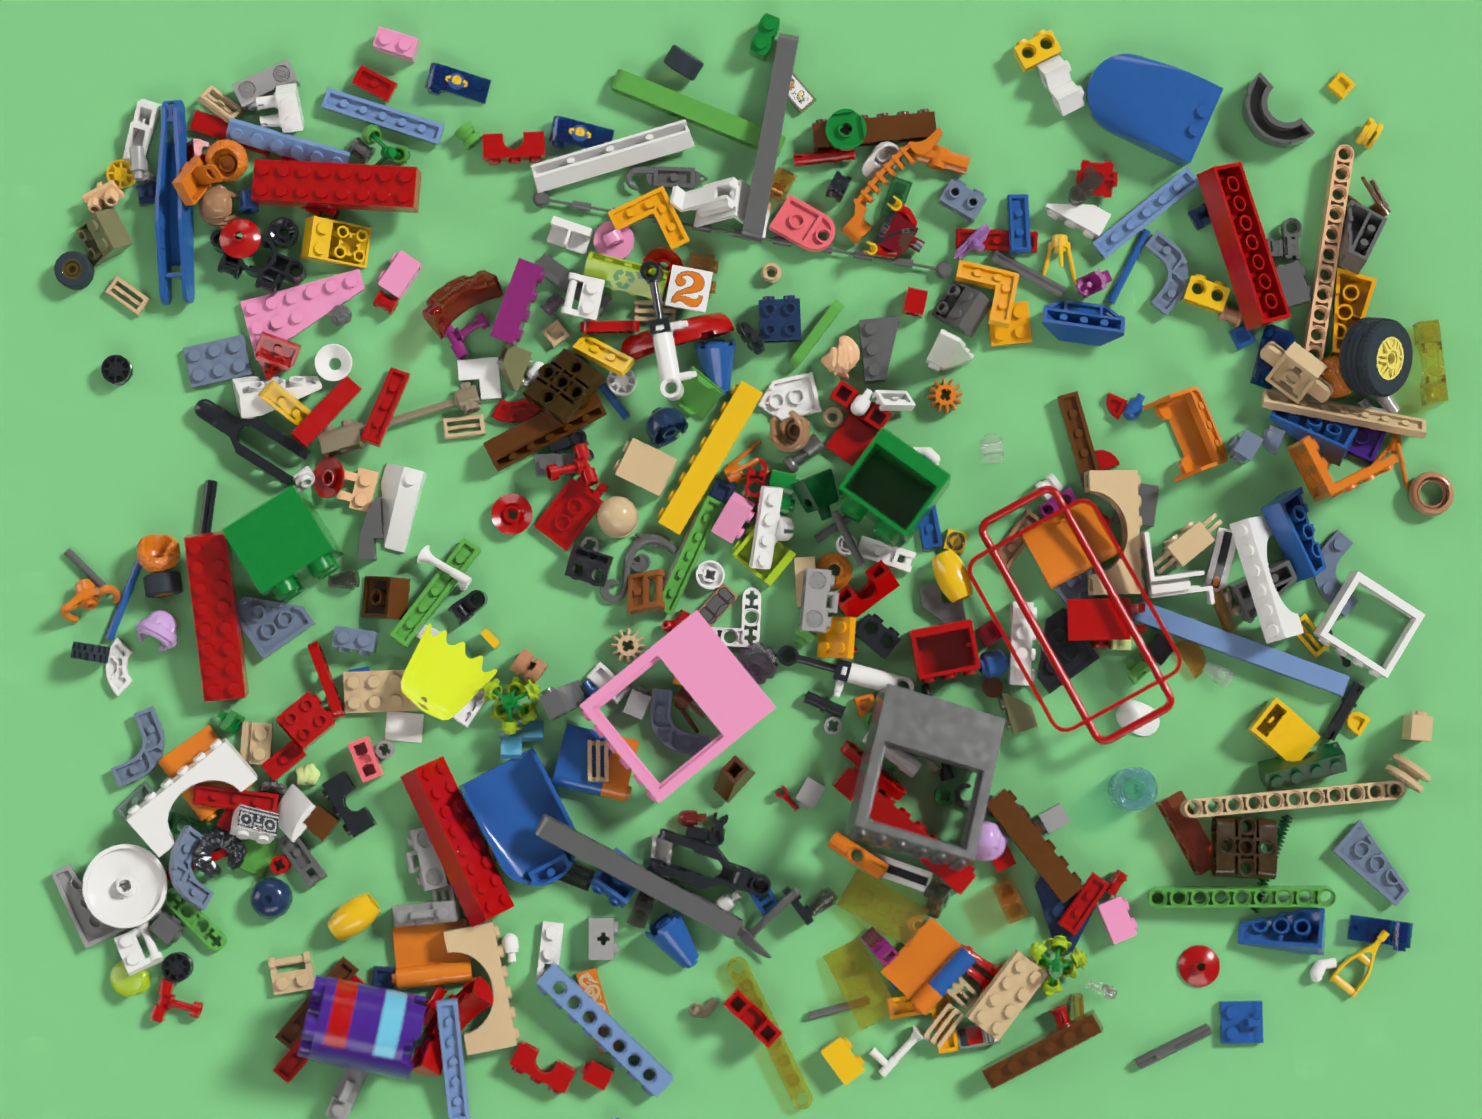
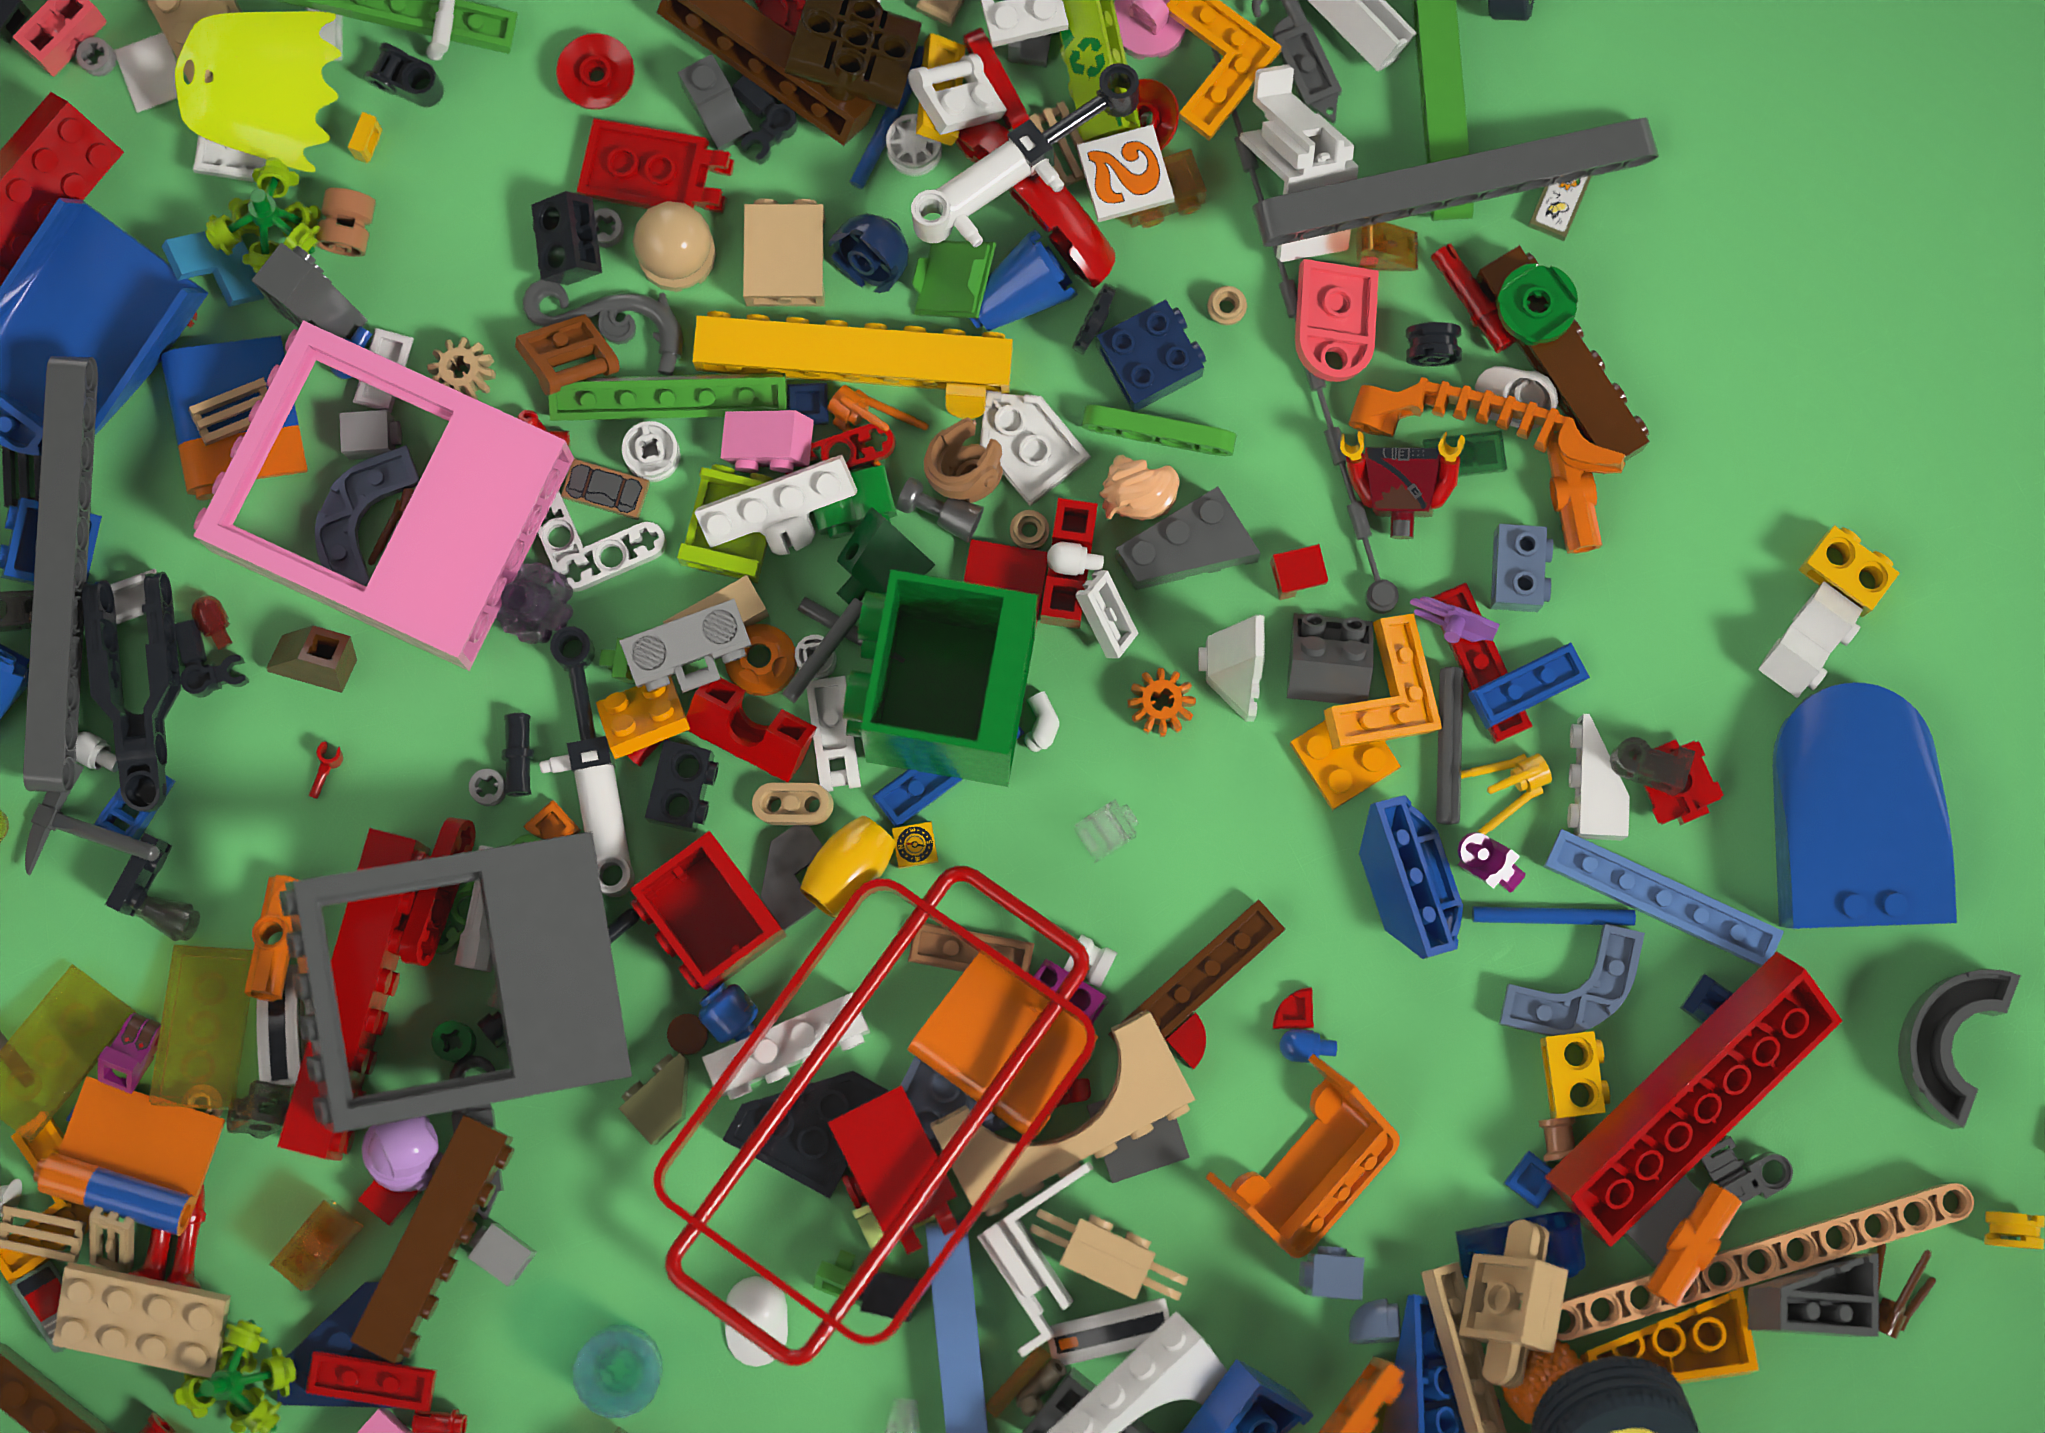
camera: 70 degrees right, 5 degrees down
(580, 467) = (730, 139): red bar -> none
(618, 348) = (960, 105): none -> white plate
(758, 416) = (965, 400): none -> yellow tile
(762, 40) = (1619, 97): green brick -> none
(809, 793) = (348, 802): light grey brick -> none
(910, 587) = (794, 803): none -> tan plate
(988, 633) = (773, 977): dark red plate -> none
(1192, 656) = (913, 1366): clear orange tile -> none
(1308, 279) = (1693, 1244): none -> orange piece

